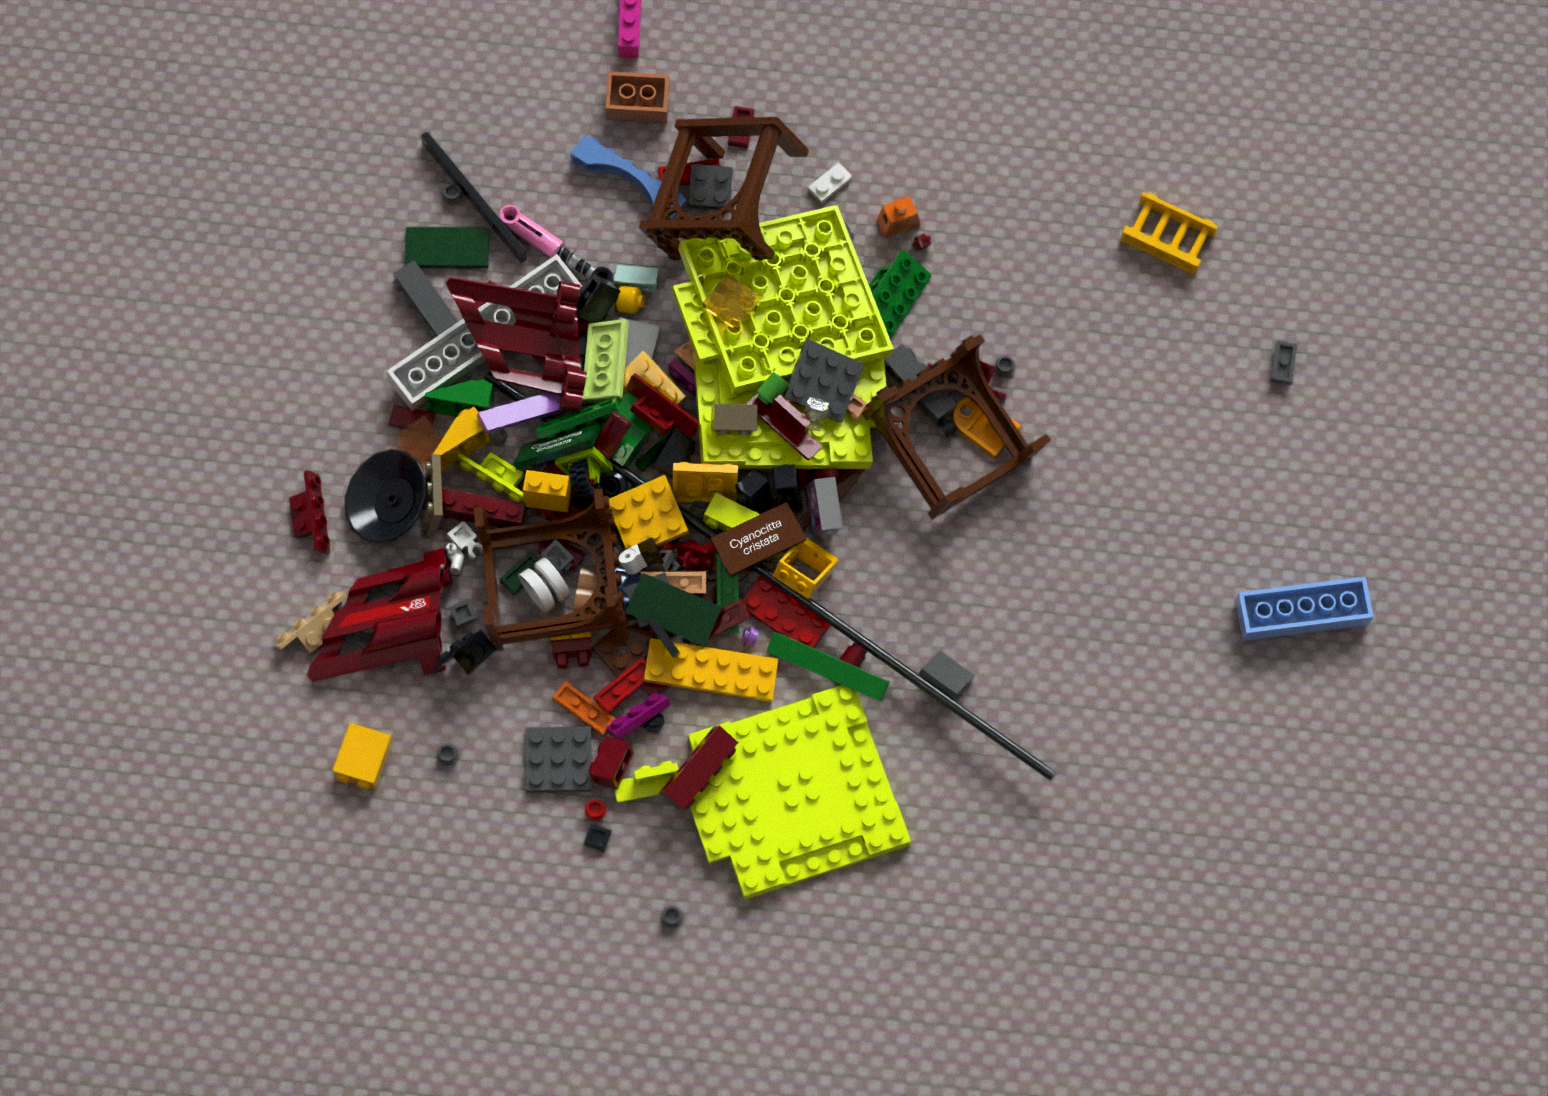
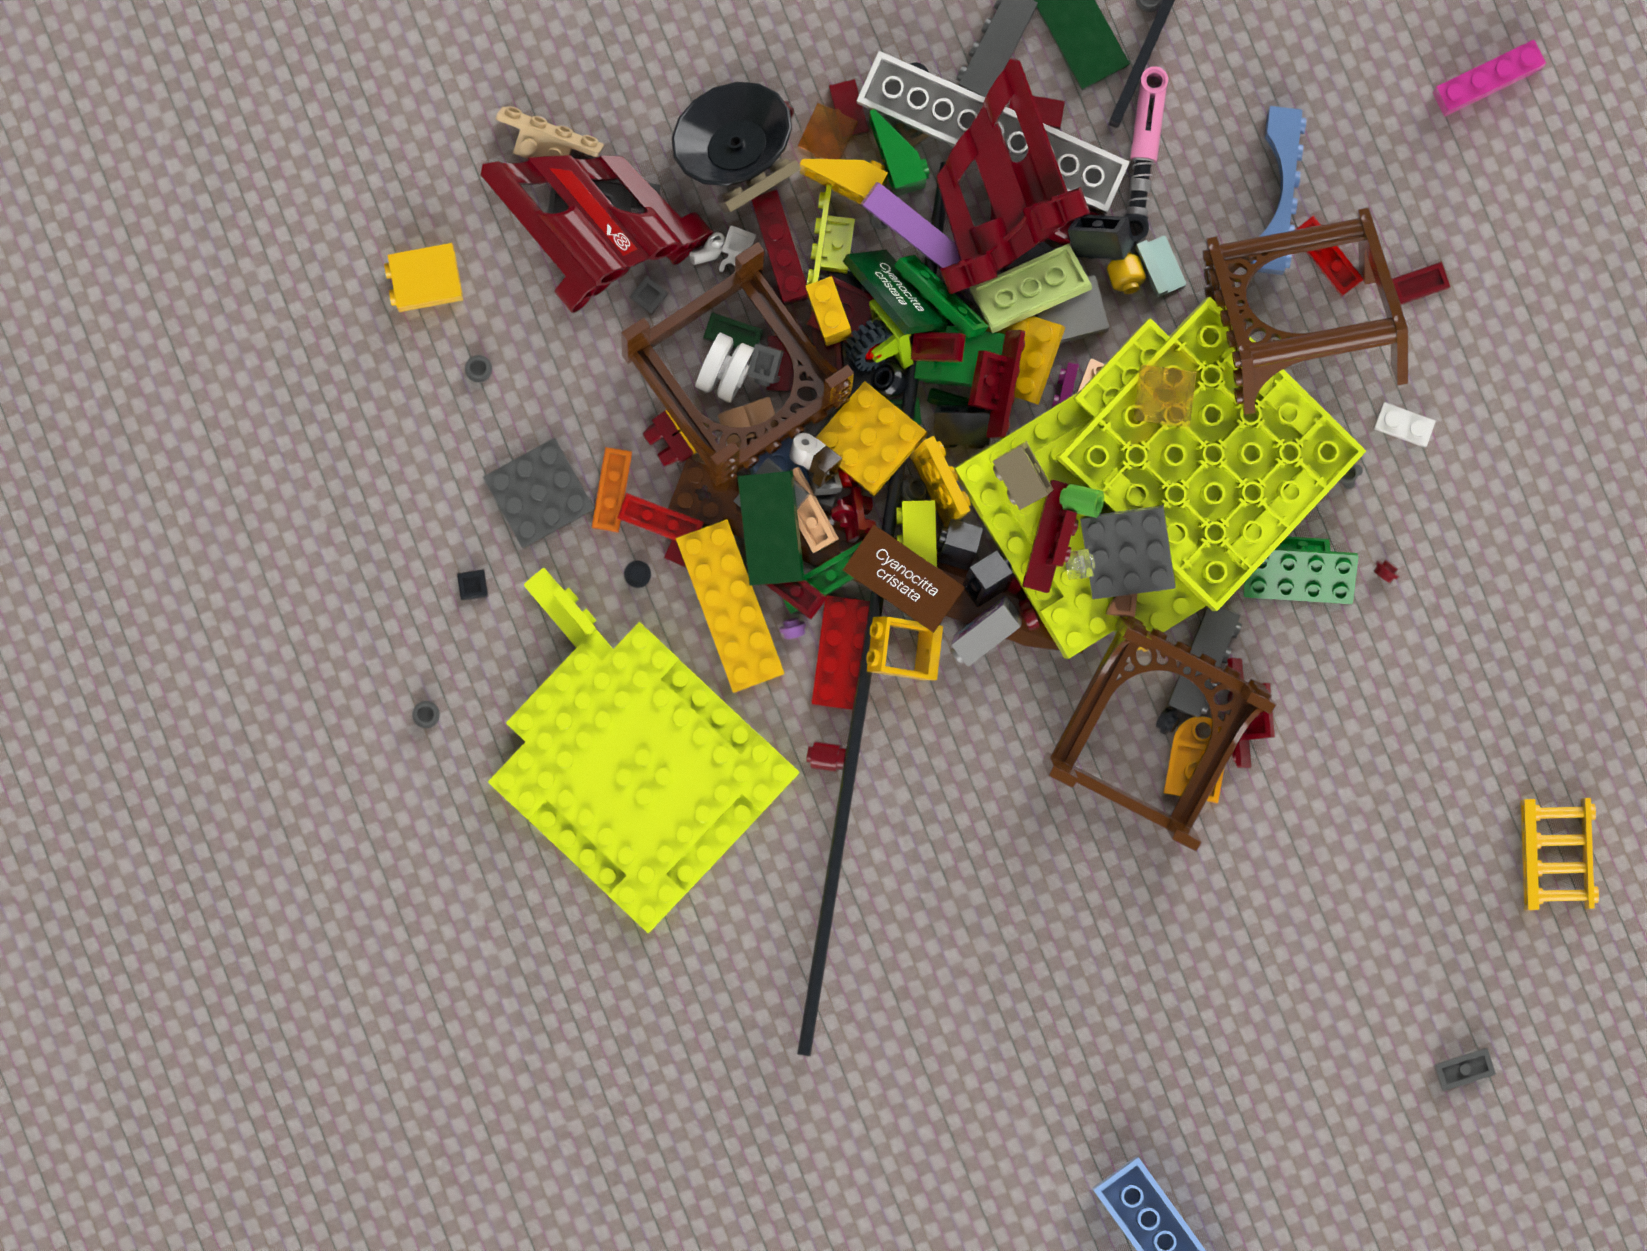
camera: 65 degrees right, 15 degrees up
(309, 513) = (673, 60): dark red bracket -> none
(469, 653) = (602, 329): black bracket -> none
(595, 810) = (501, 565): red plate -> none
(611, 762) = (561, 553): dark red brick -> none
(637, 97) = (1386, 144): nougat brick -> none
(638, 715) = (632, 554): magenta plate -> none
(665, 639) = (729, 536): black tile -> none
(698, 768) = (599, 655): dark red brick -> none
(710, 186) = (1321, 289): dark grey plate -> none
(828, 666) = (801, 736): green tile -> none
(898, 217) = (1401, 528): orange torso -> none
(946, 674) = (865, 873): dark grey tile -> none
(1005, 366) = (1283, 747): dark grey plate -> none

